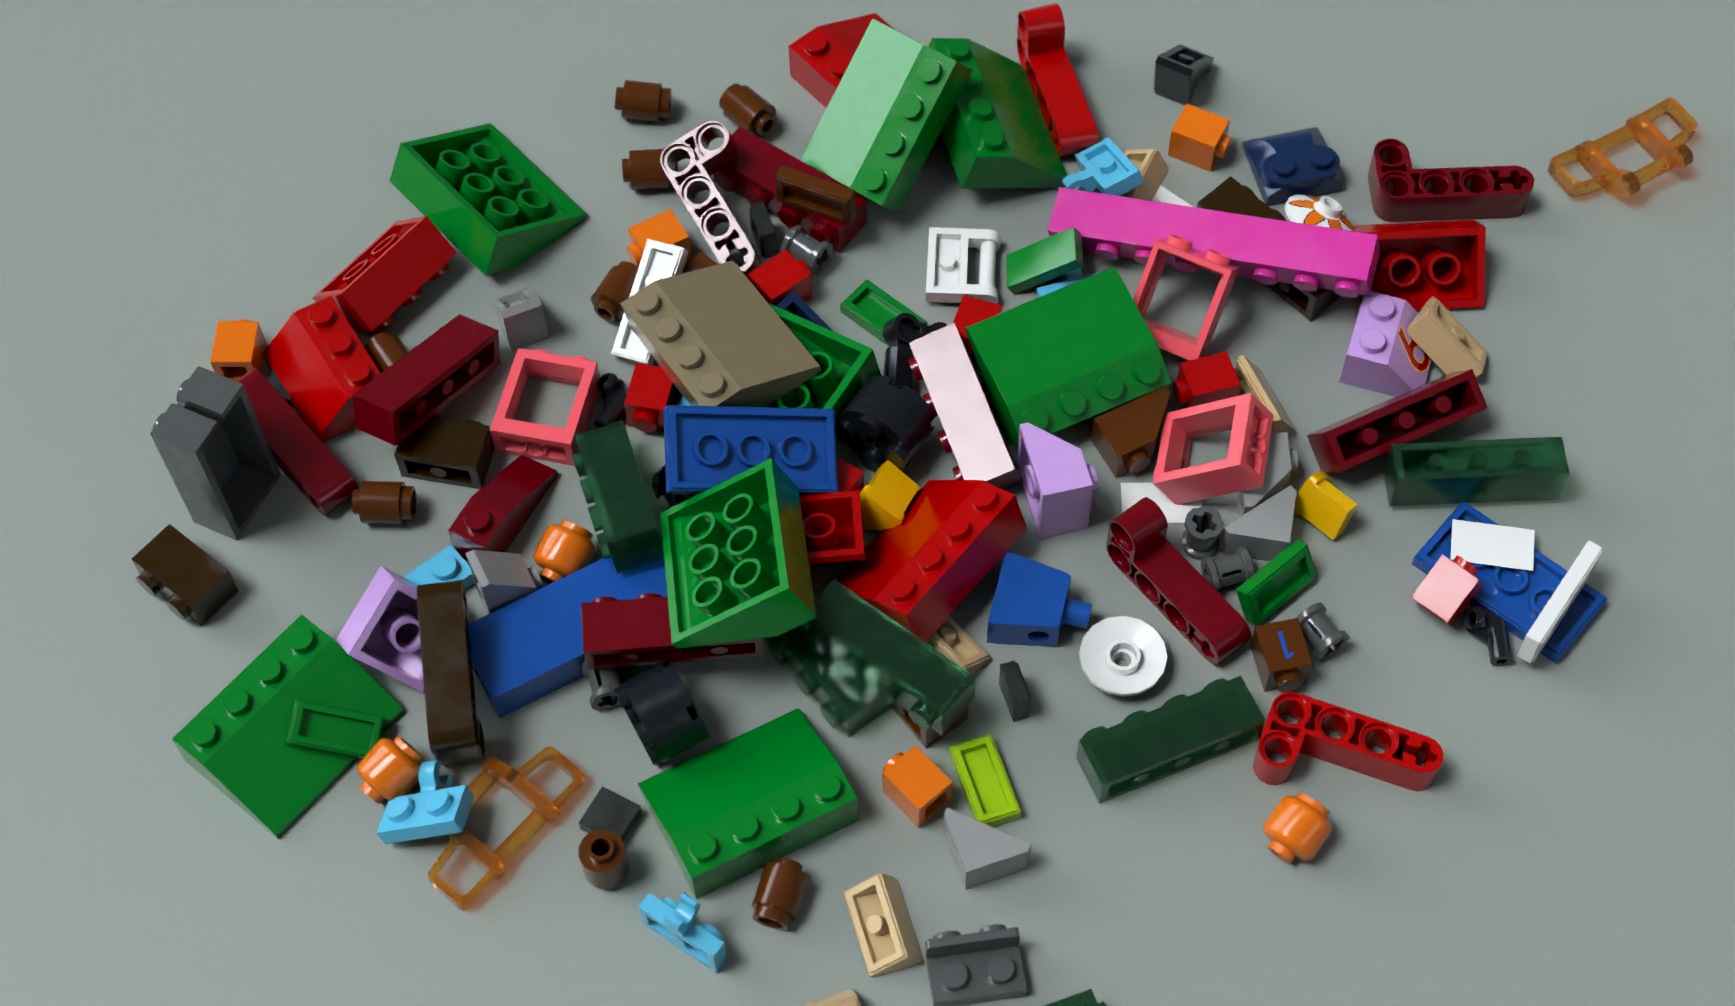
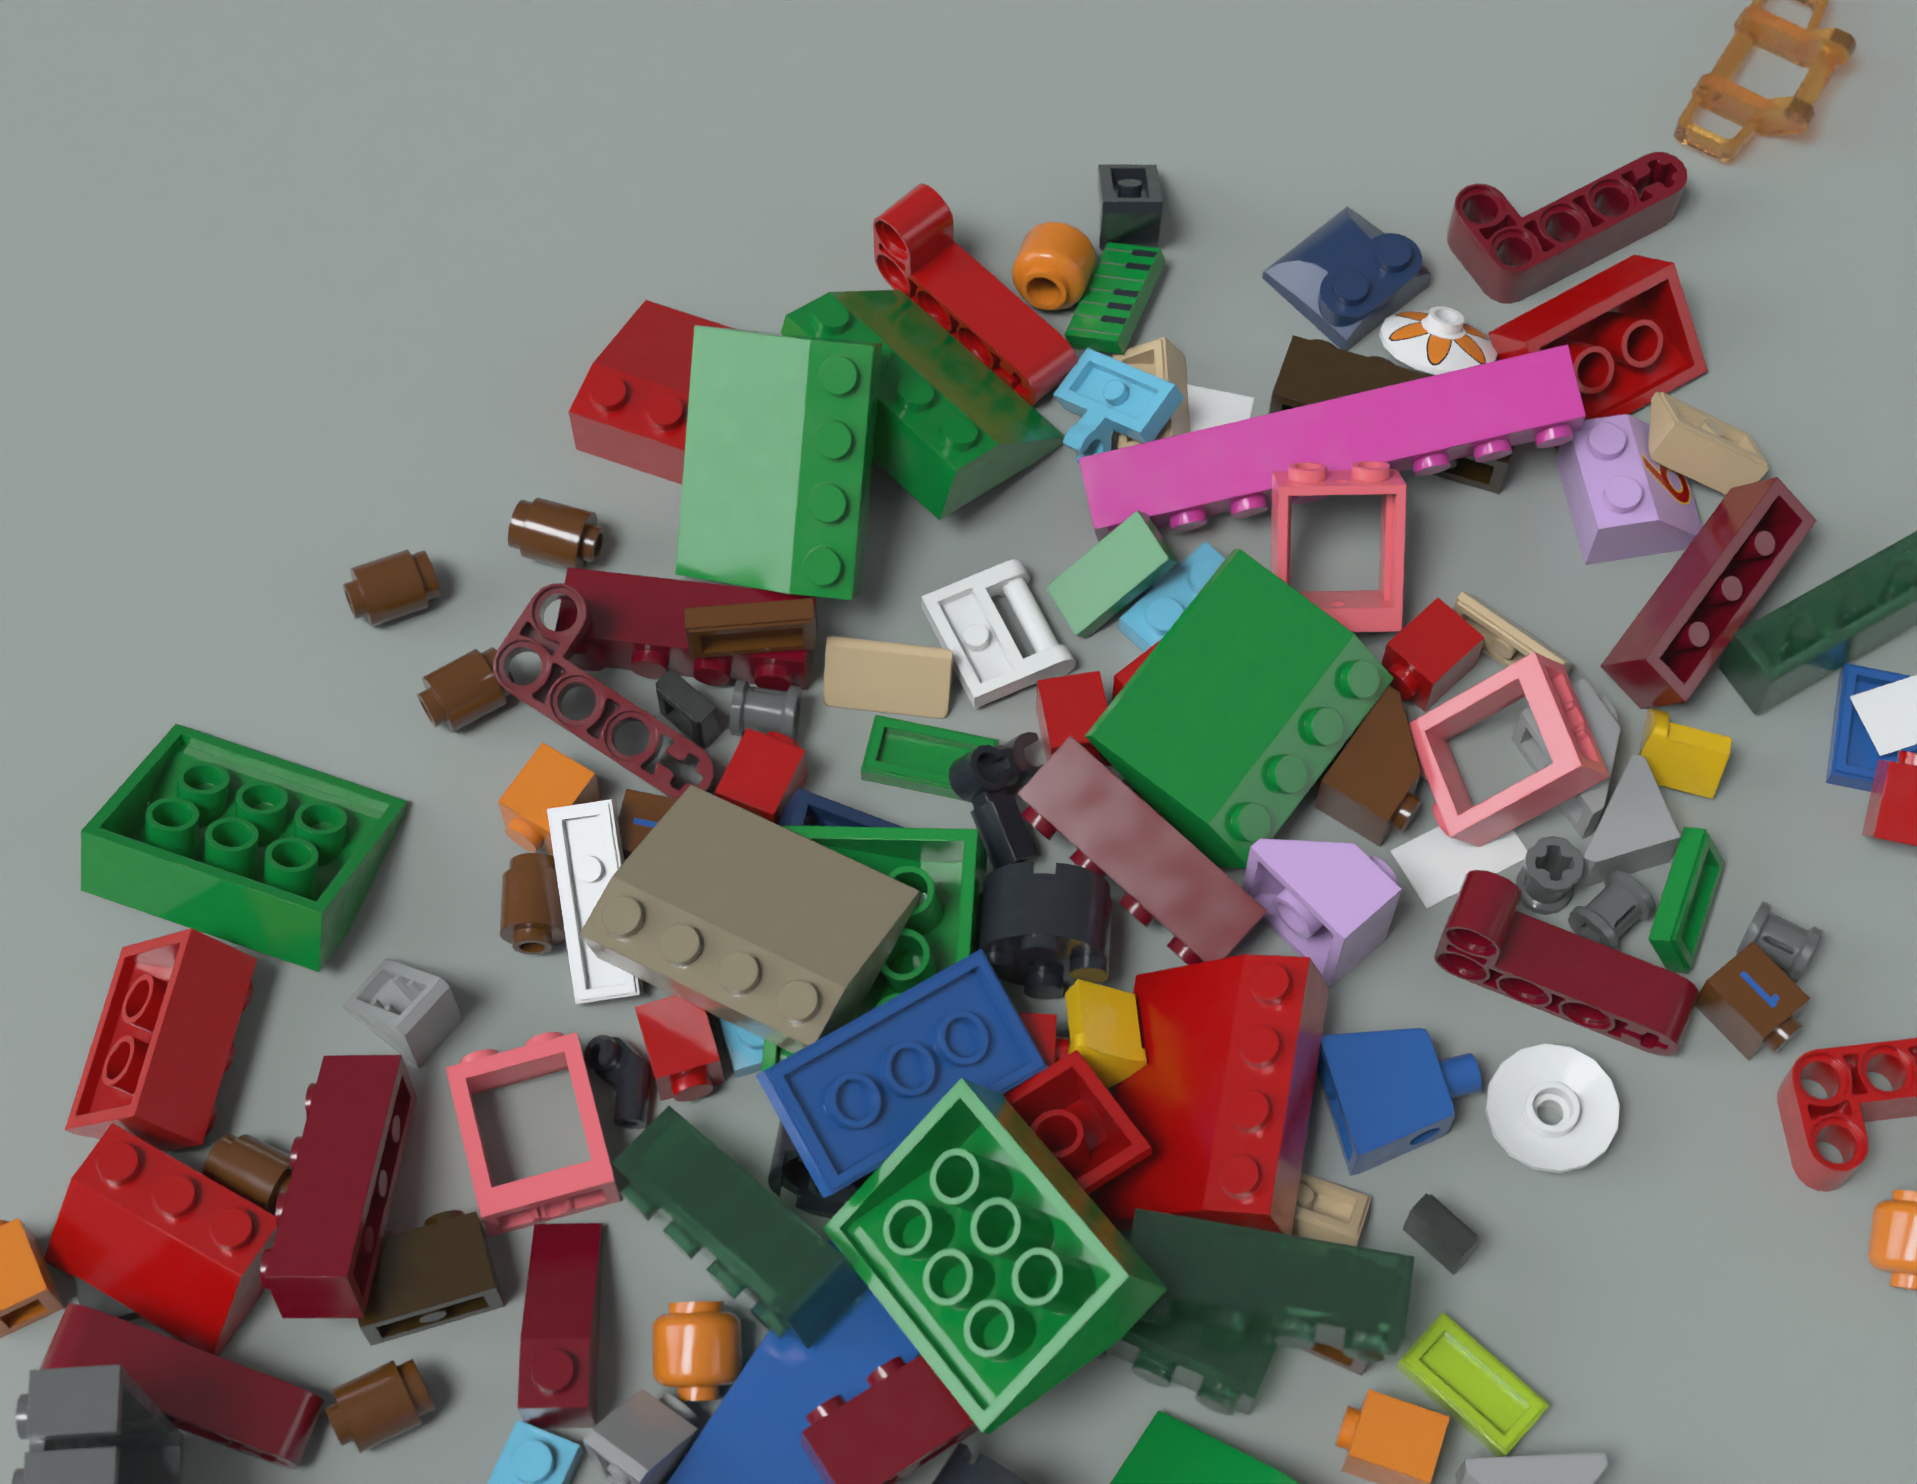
camera: 30 degrees left, 5 degrees up
(885, 262) = (888, 677): none -> tan slope
(1117, 86) = (1053, 266): none -> orange head
(1143, 119) = (1115, 298): none -> green tile
(1169, 738) = (1680, 1197): clear green brick -> none
(1199, 137) = (1209, 293): orange brick -> none

